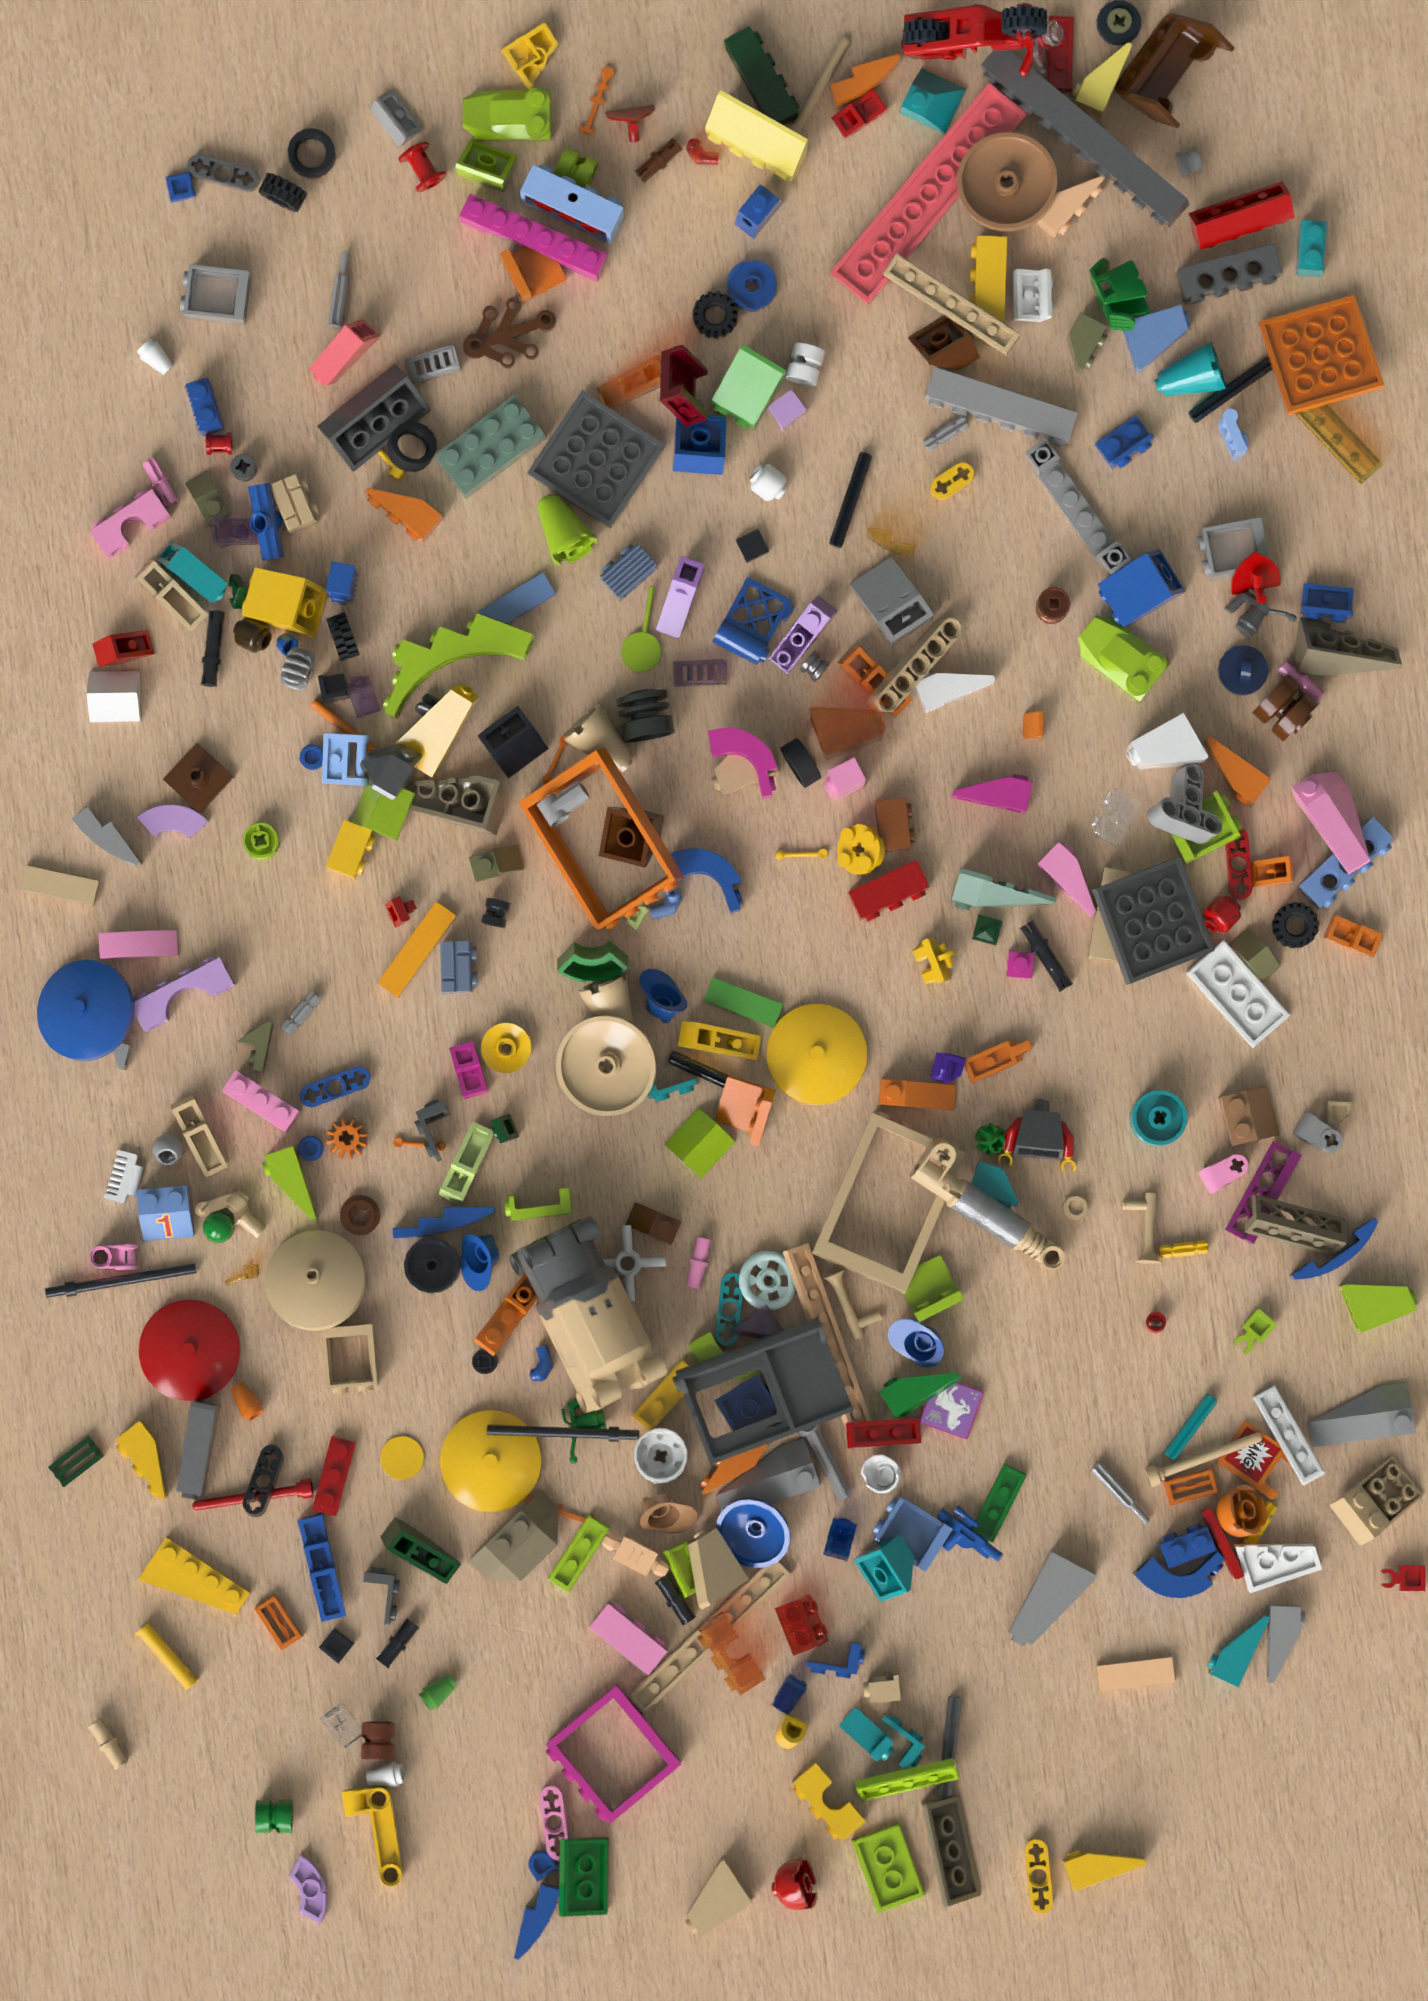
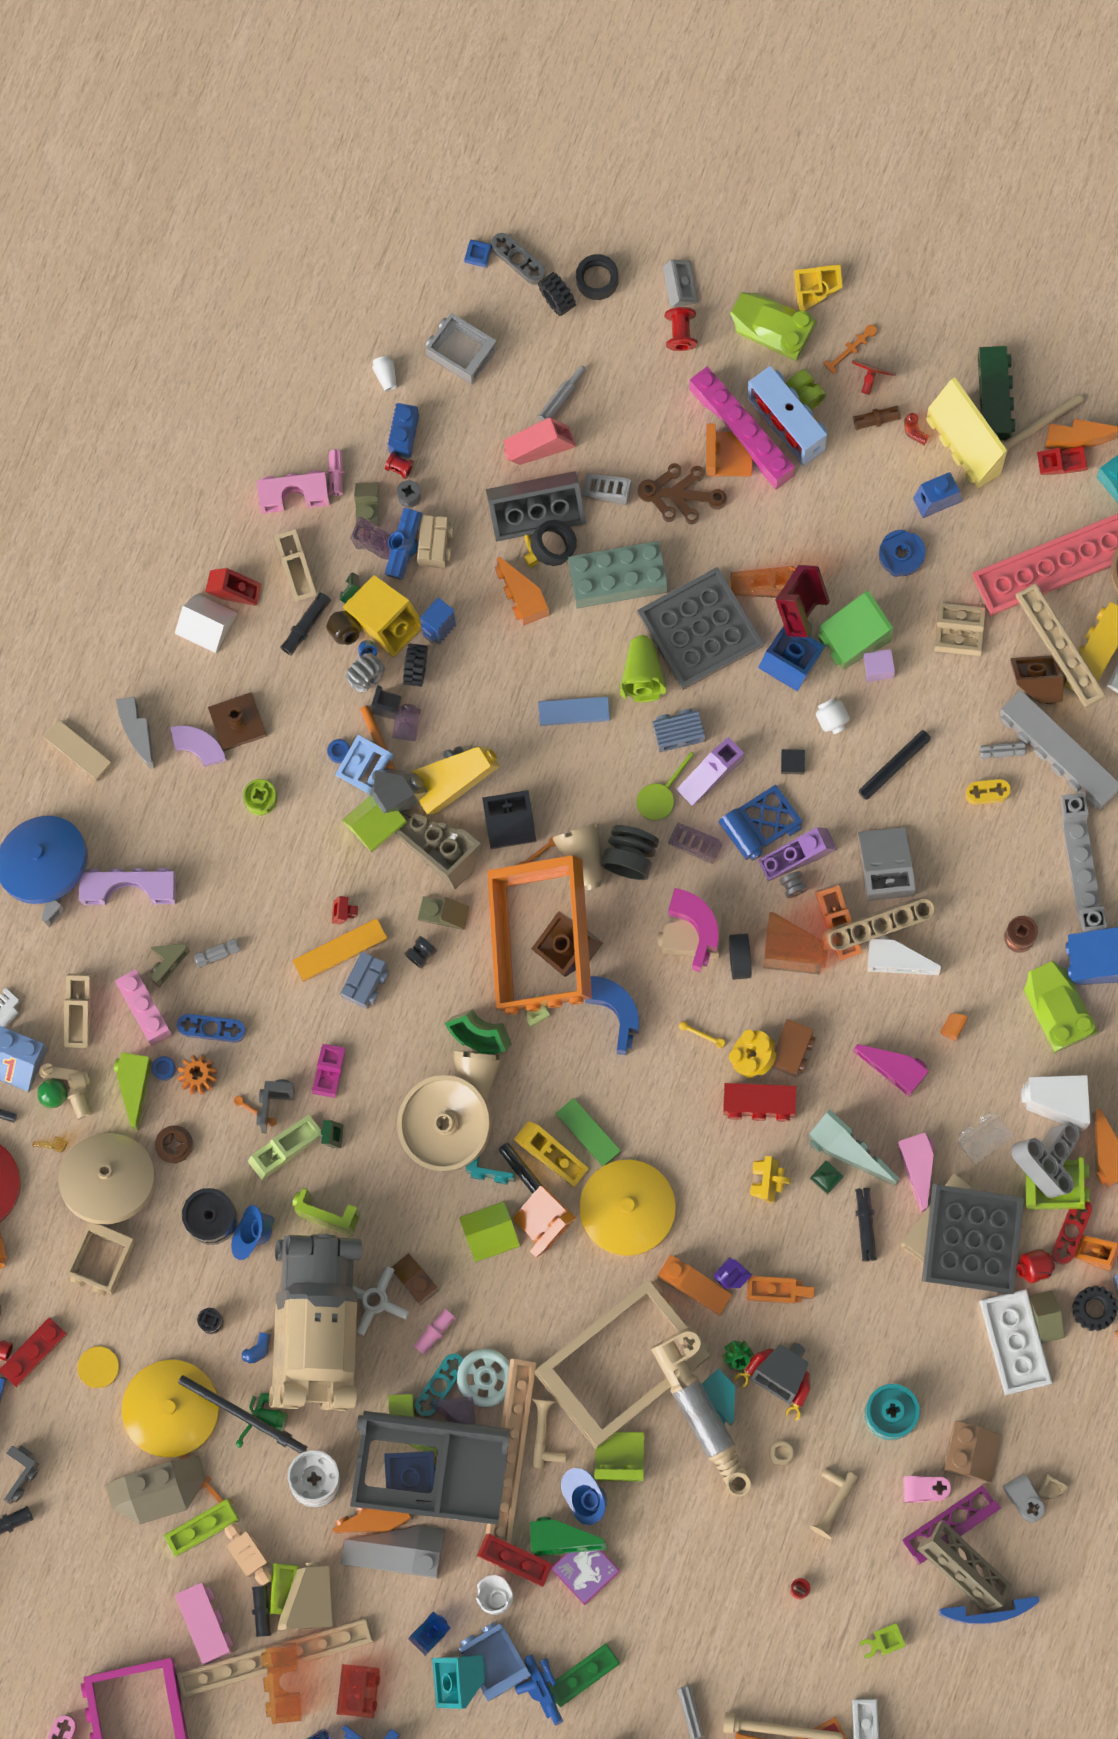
camera: 35 degrees right, 10 degrees down
(138, 944) = (113, 828): bright pink slope -> none
(167, 1149) = (45, 1007): light grey piece -> none
(192, 572) = (322, 555): teal slope -> none
(350, 849) = (329, 840): yellow brick -> none
(418, 663) = (467, 718): lime arch -> none
(419, 1550) = (68, 1453): dark green slope -> none
(437, 1692) = (18, 1583): bright green cone -> none
(453, 1218) = (248, 1187): blue slope -> none
(485, 165) = (732, 353): lime slope -> none
(492, 1048) = (367, 1056): yellow dish -> none
(507, 1316) = (247, 1293): orange slope -> none
(558, 806) = (516, 888): light grey piece -> none
(660, 1401) = (337, 1434): yellow tile -> none
(662, 994) = (523, 1090): blue piece -> none
(665, 1515) = (291, 1533): medium nougat piece -> none
(669, 906) = (567, 1021): medium blue arm -> none
(708, 301) = (859, 548): black tyre -> none
(753, 1544) = (350, 1595): blue dish -> none
(805, 363) = (916, 632): white wheel -> none
(827, 1462) = (454, 1554): light grey axle -> none
(844, 779) = (768, 986): bright pink brick -> none
(845, 333) = (959, 629): none -> tan slope
(883, 539) = (906, 809): clear yellow slope -> none
(1020, 965) = (839, 1221): dark pink plate -> none
(1183, 1249) = (857, 1538): yellow axle -> none
(1190, 1426) = (784, 1697): teal axle -> none
(1377, 1304) = (1003, 1675): lime slope -> none

